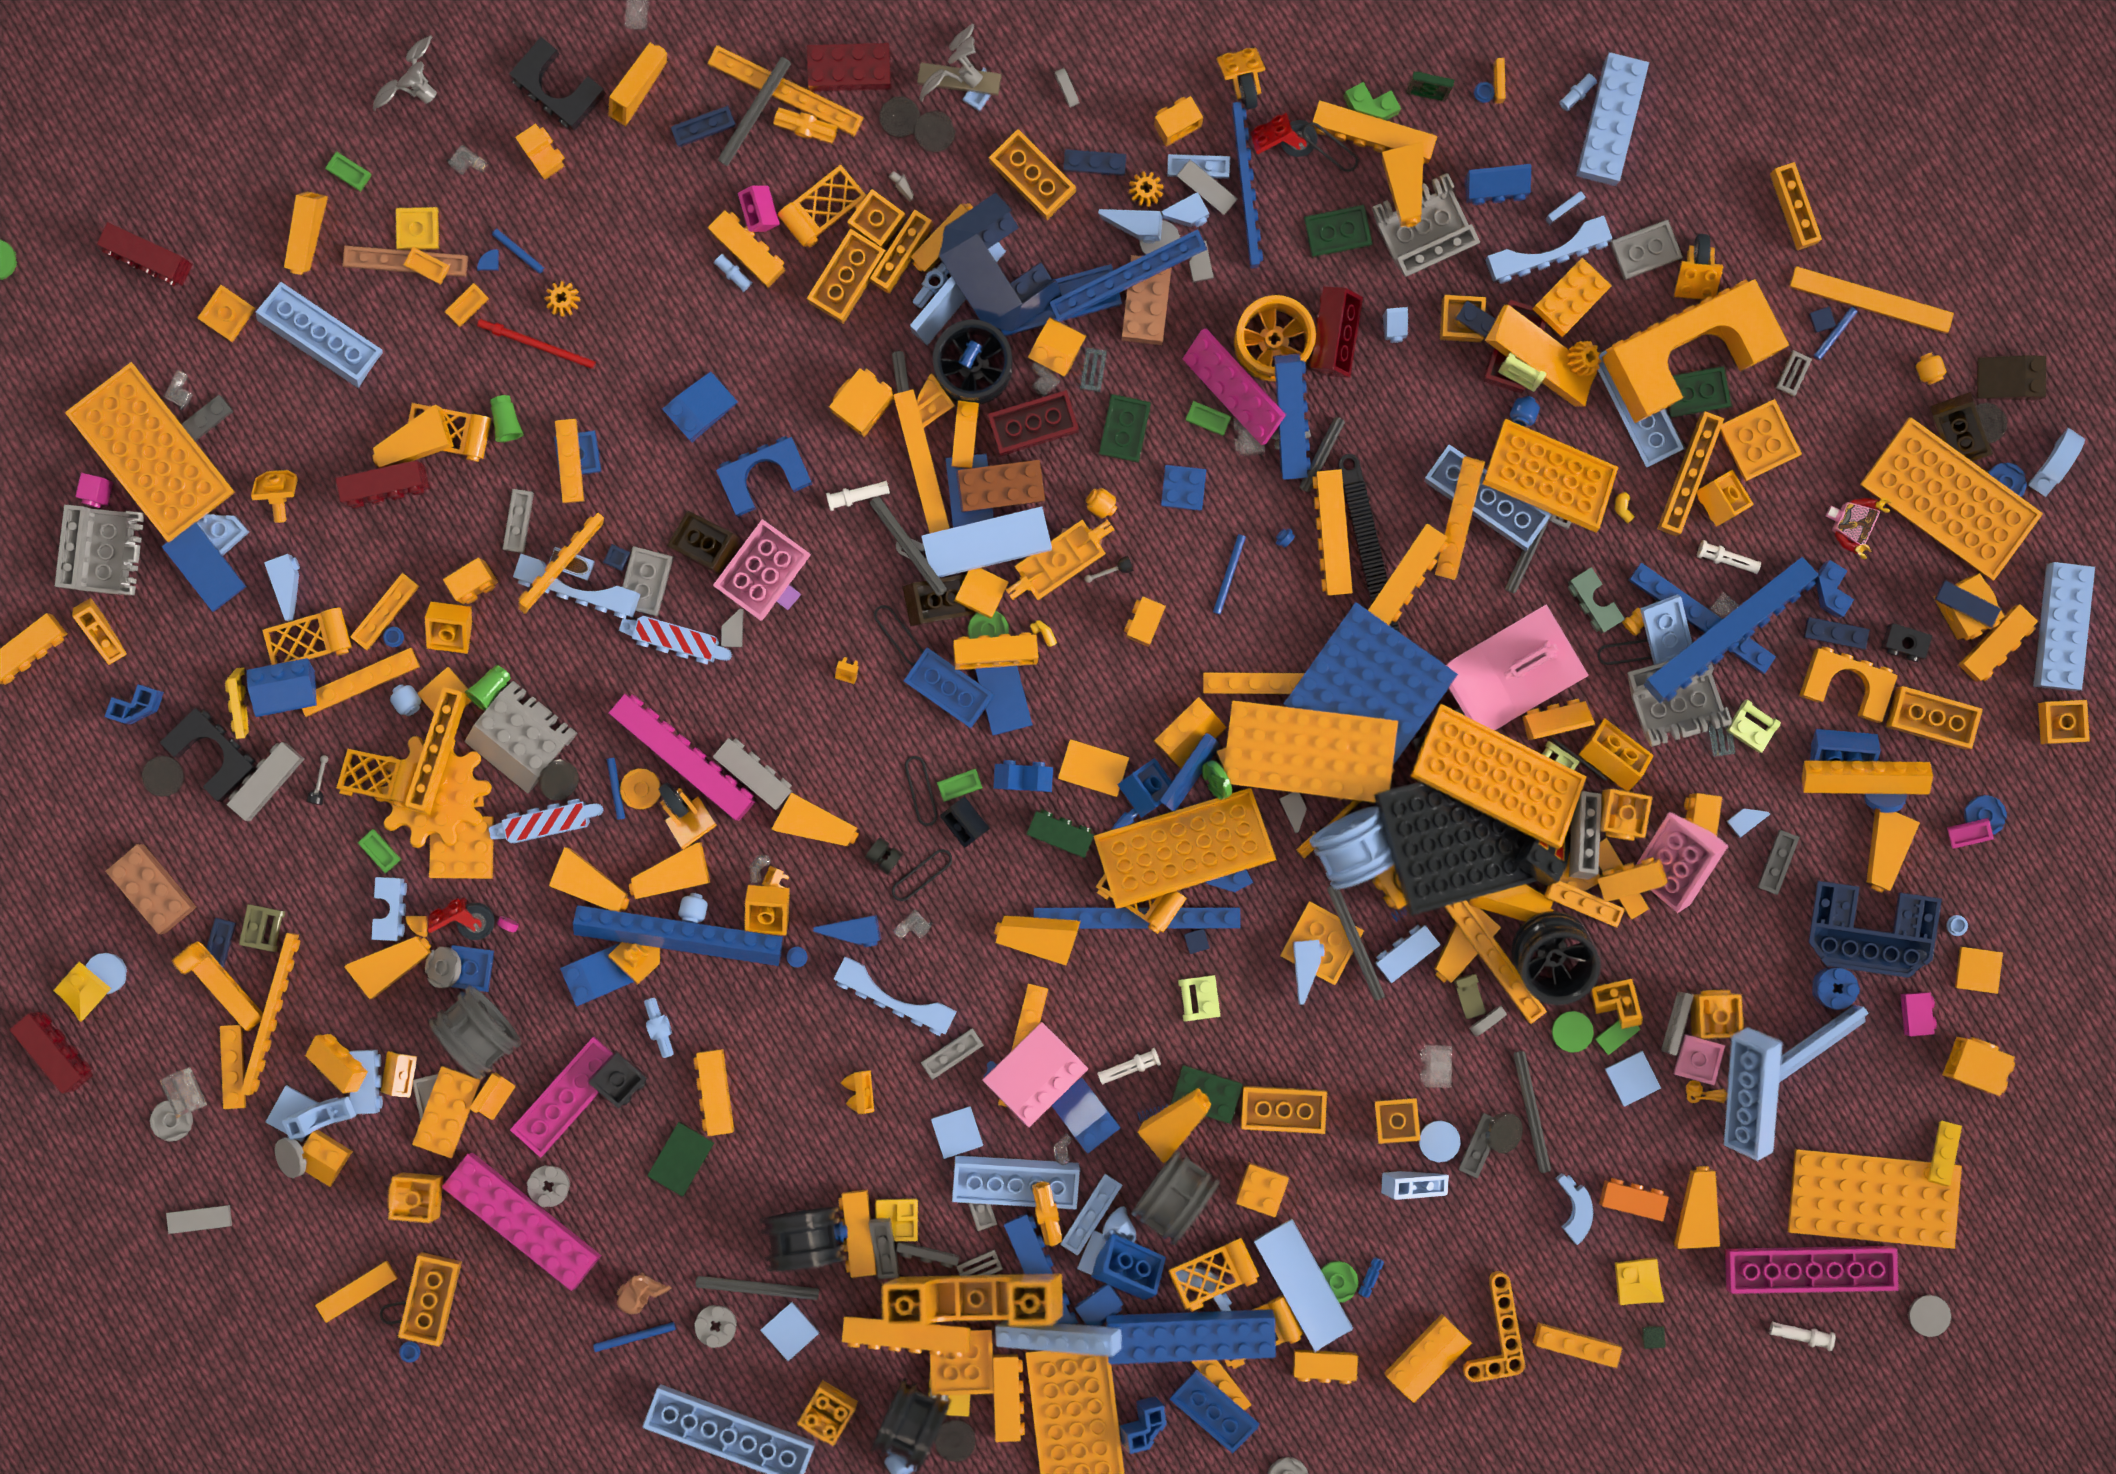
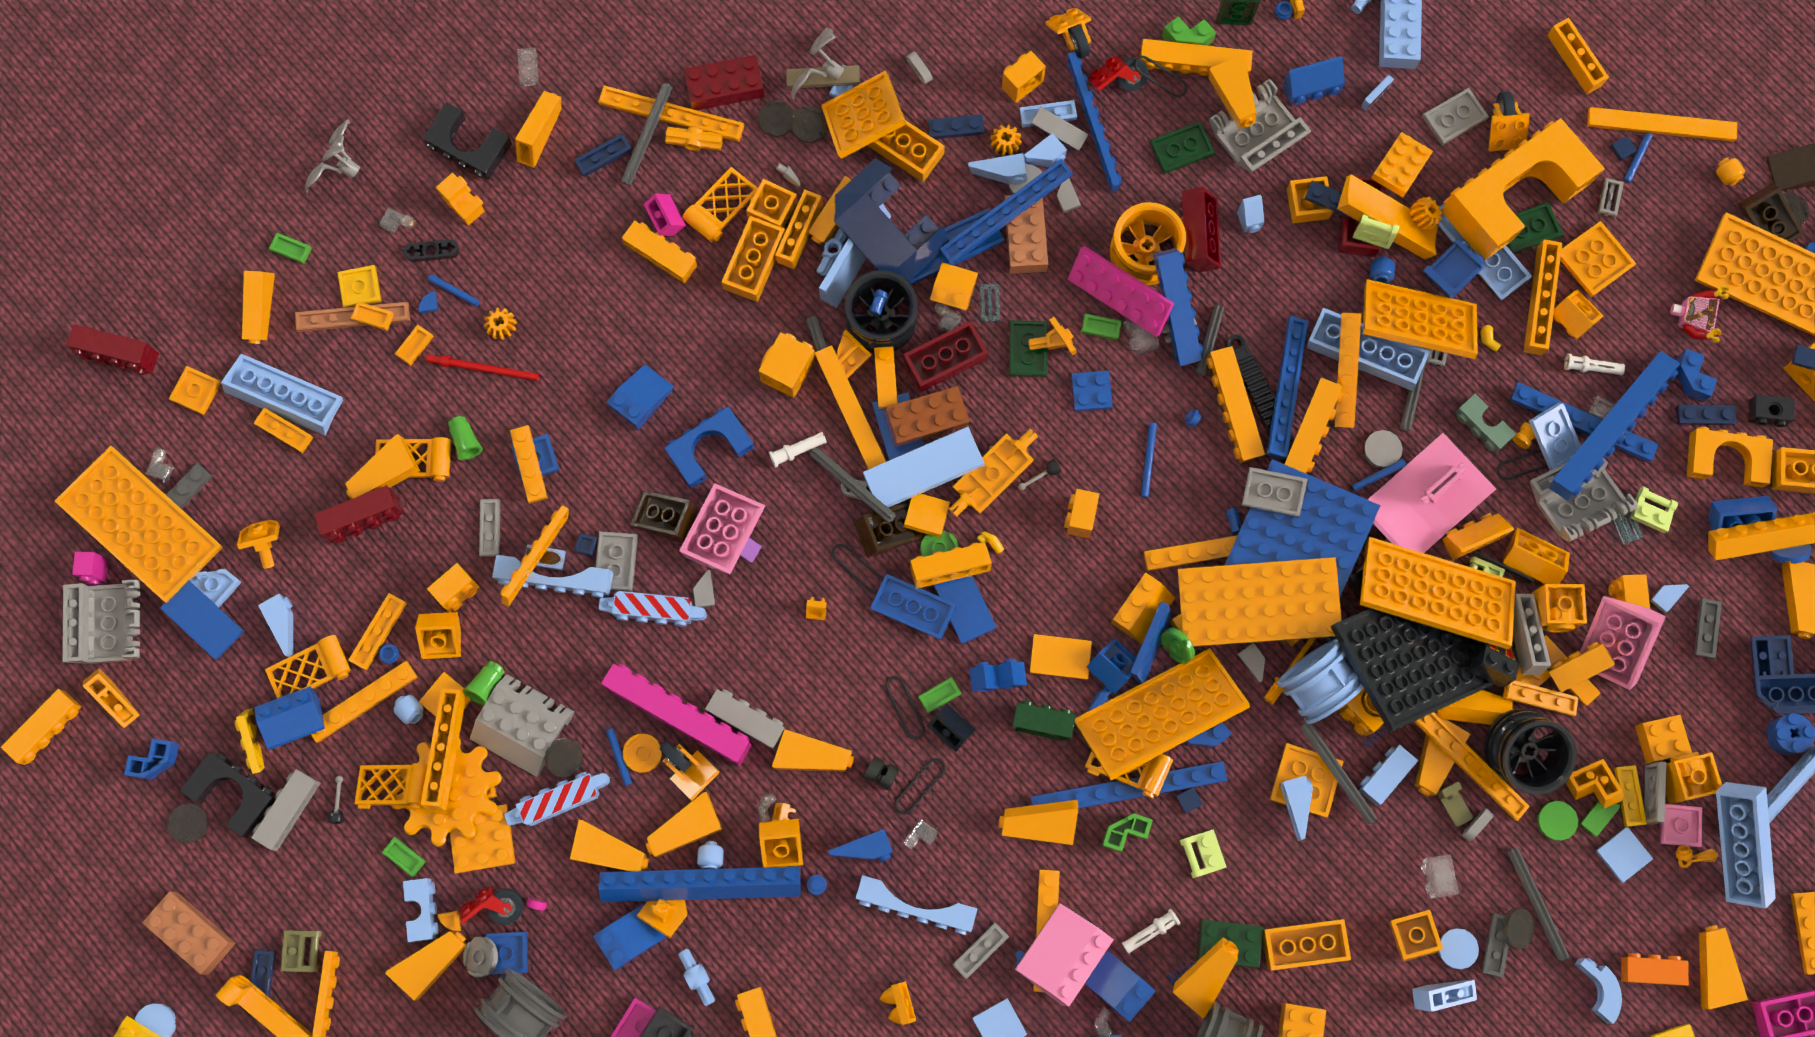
camera: 10 degrees left, 10 degrees down
(314, 375) = (283, 430): none -> light orange plate
(506, 209) = (425, 245): none -> black beam
(733, 272) = (650, 274): light blue pin -> none
(993, 135) = (863, 114): none -> light orange plate
(1101, 503) = (1020, 416): light orange head -> none
(1130, 956) = (1132, 825): none -> bright green brick
(1155, 425) = (1054, 339): none -> light orange piece
(1305, 656) = (1234, 520): none -> blue pin
(1350, 638) = (1274, 492): none -> light grey tile
(1392, 523) = (1287, 388): none -> blue plate
(1470, 635) = (1378, 475): none -> blue bar
(1481, 607) = (1382, 449): none -> light grey tile
(1510, 263) = (1339, 147): light blue arch -> none
(1602, 425) = (1455, 268): none -> blue panel
(1653, 1020) = (1632, 802): none -> yellow plate
(1701, 969) = (1663, 739): none -> light orange brick

